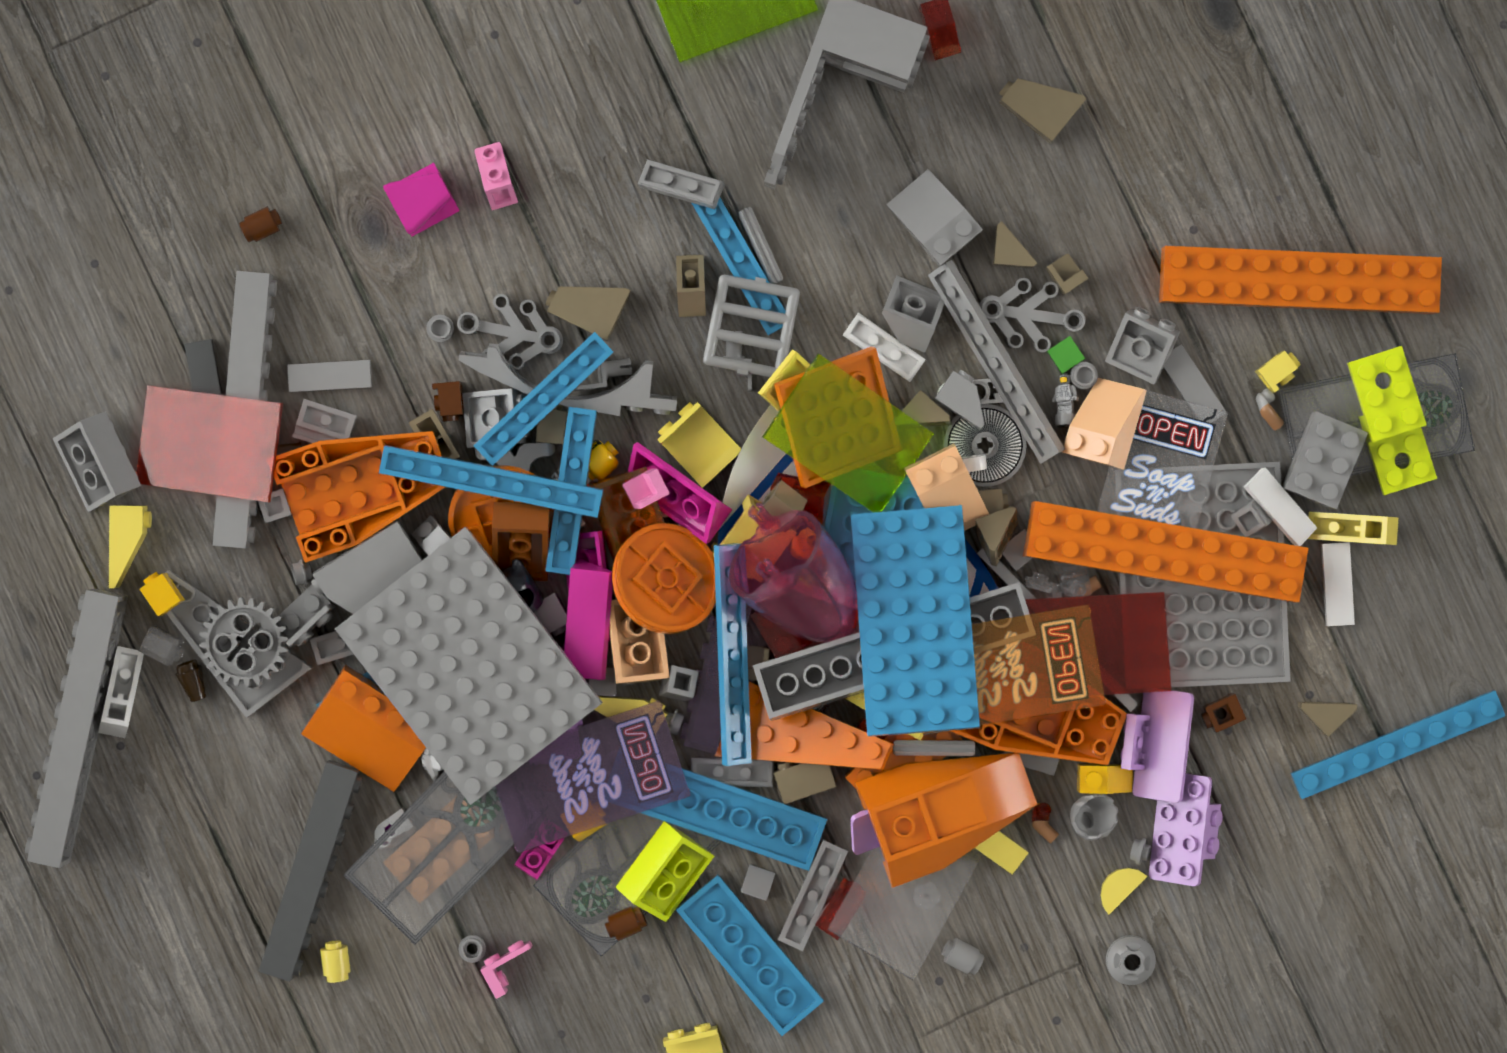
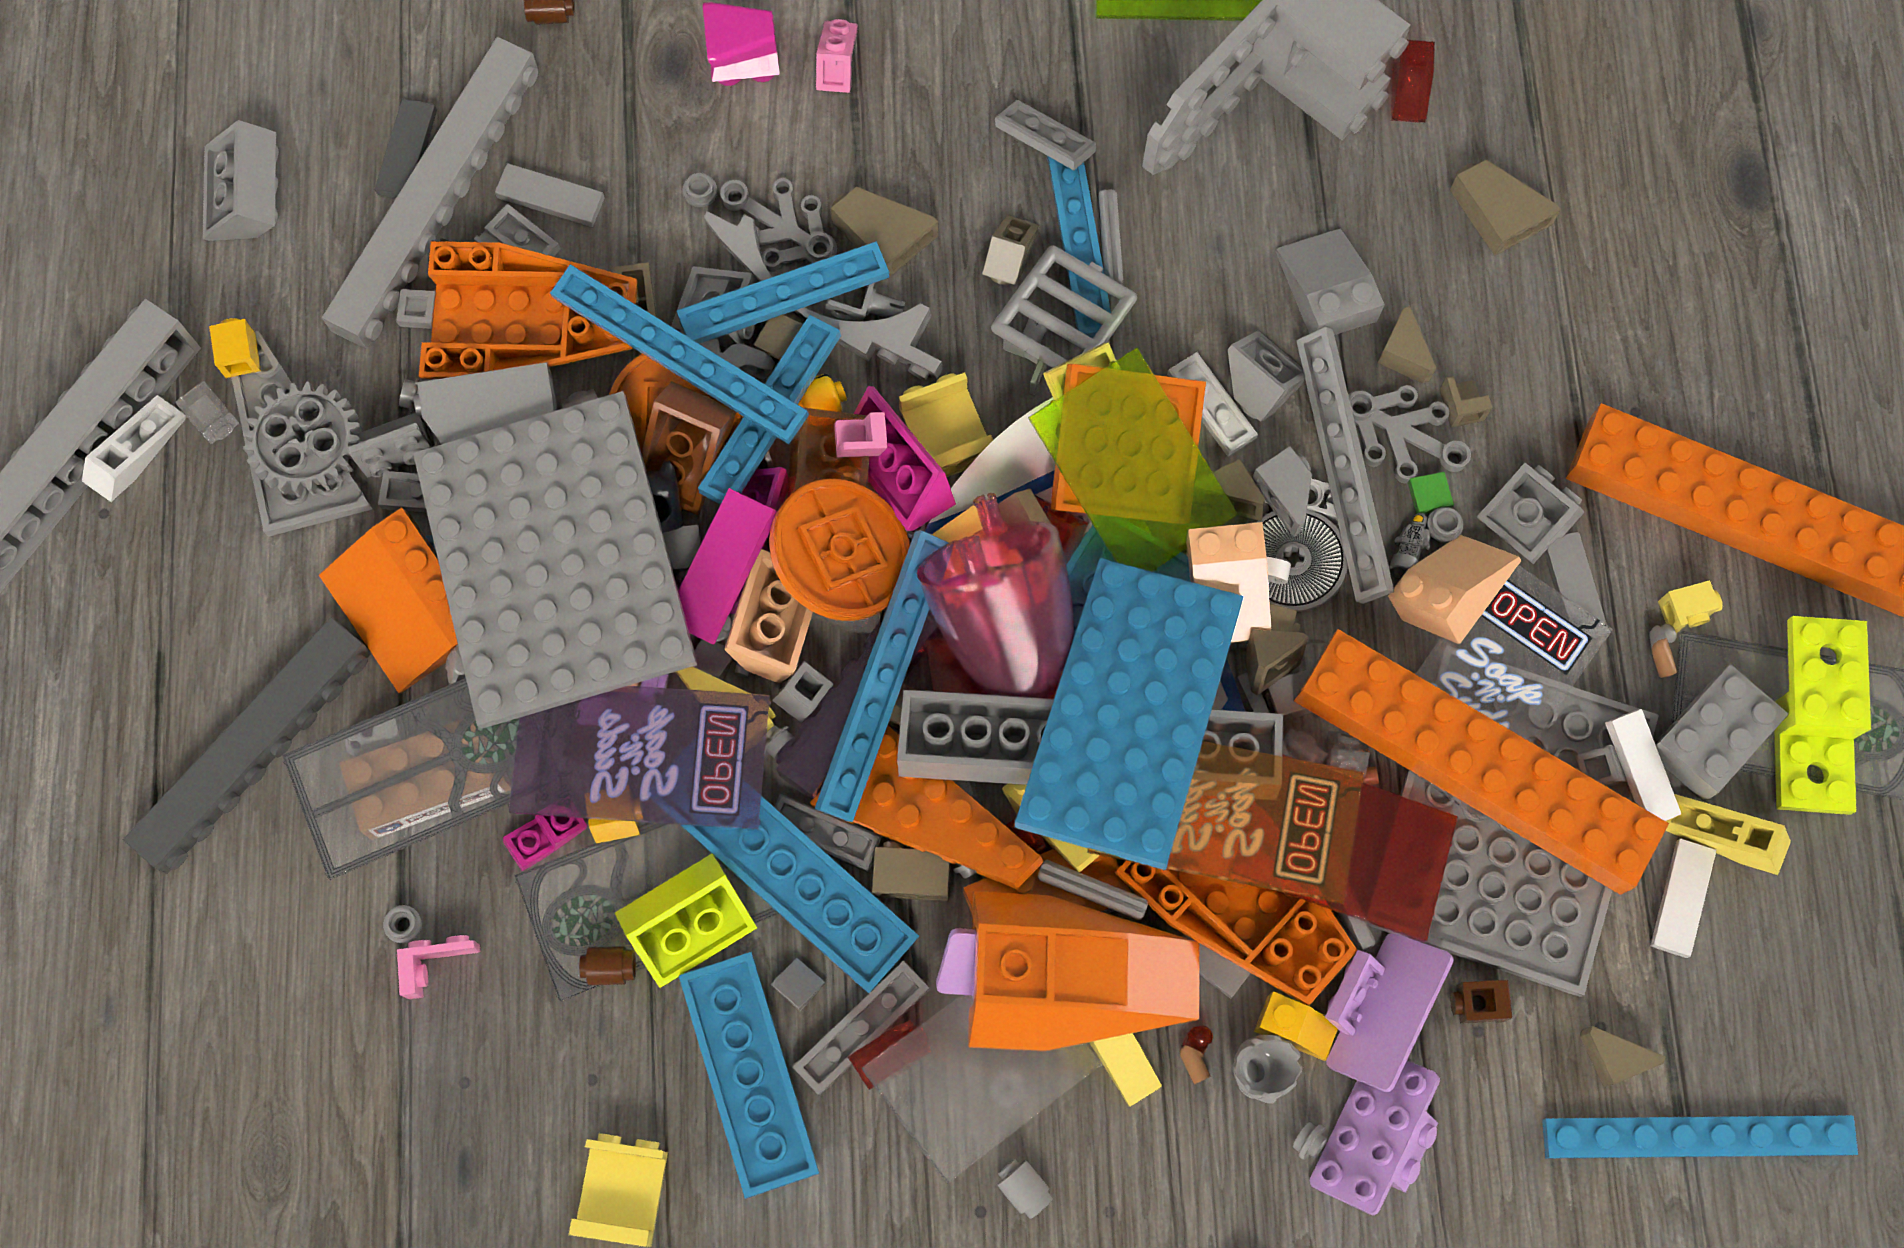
camera: 25 degrees right, 15 degrees down
(126, 533) = (228, 279): light yellow slope -> none
(191, 679) = (223, 465): dark brown cone -> none
(209, 443) = (374, 207): clear red piece -> none
(335, 961) = (225, 870): light yellow brick -> none
(449, 400) = (673, 266): reddish brown brick -> none
(1119, 886) = (1265, 1178): light yellow tile -> none

